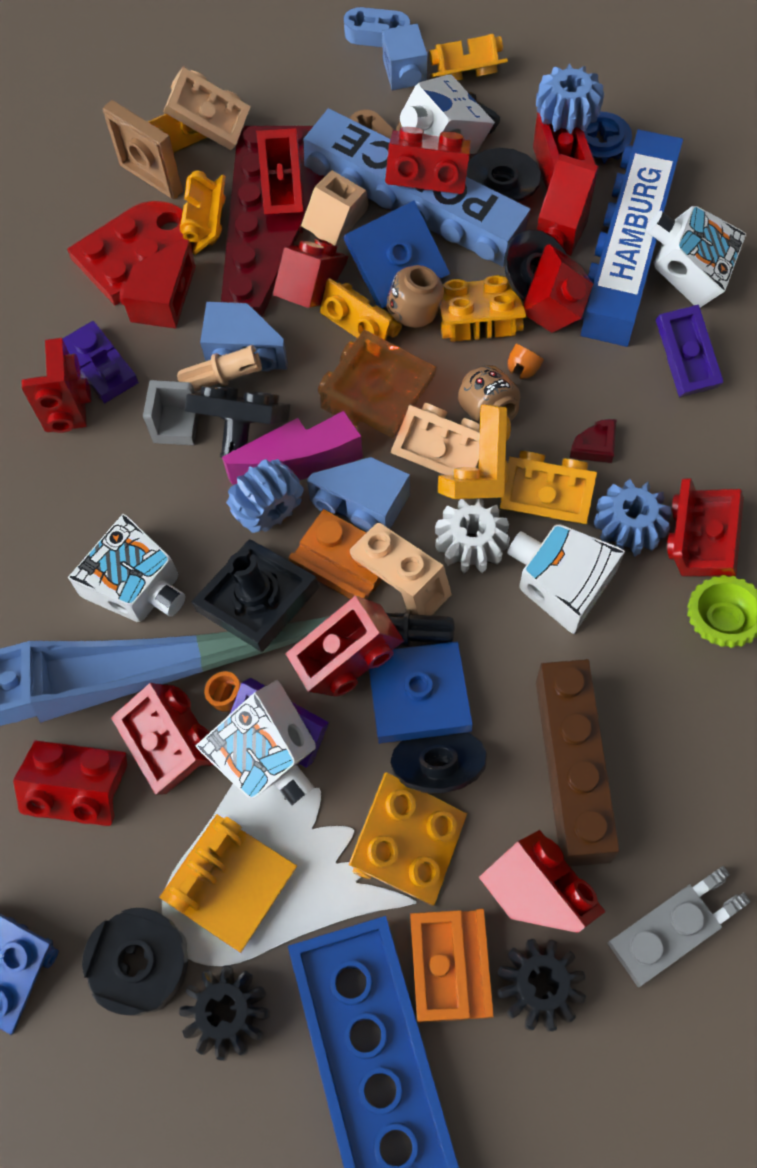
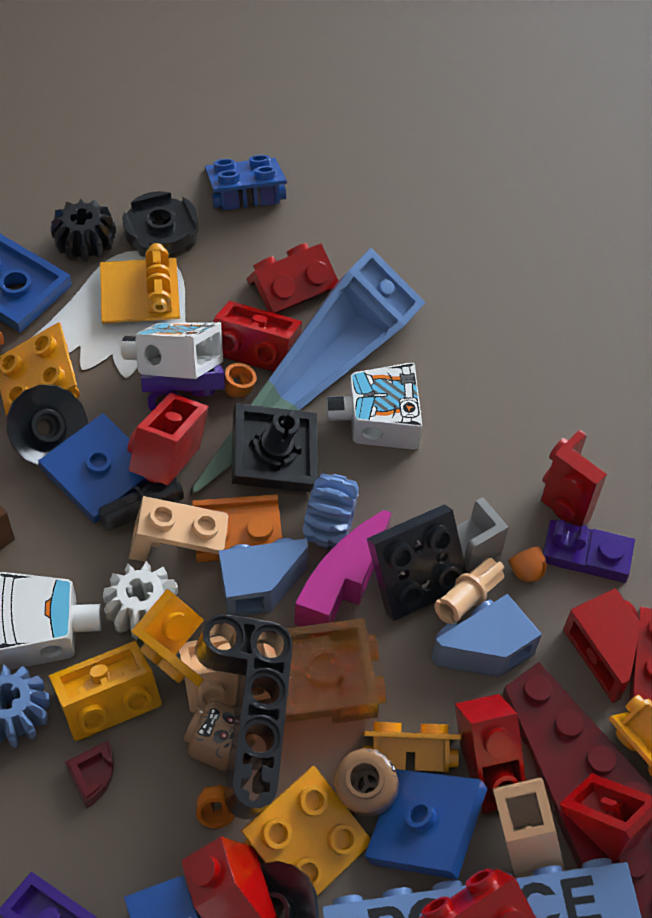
camera: 135 degrees right, 10 degrees down
(152, 369) = (529, 564): none -> orange hinge
(438, 382) = (249, 714): none -> black beam

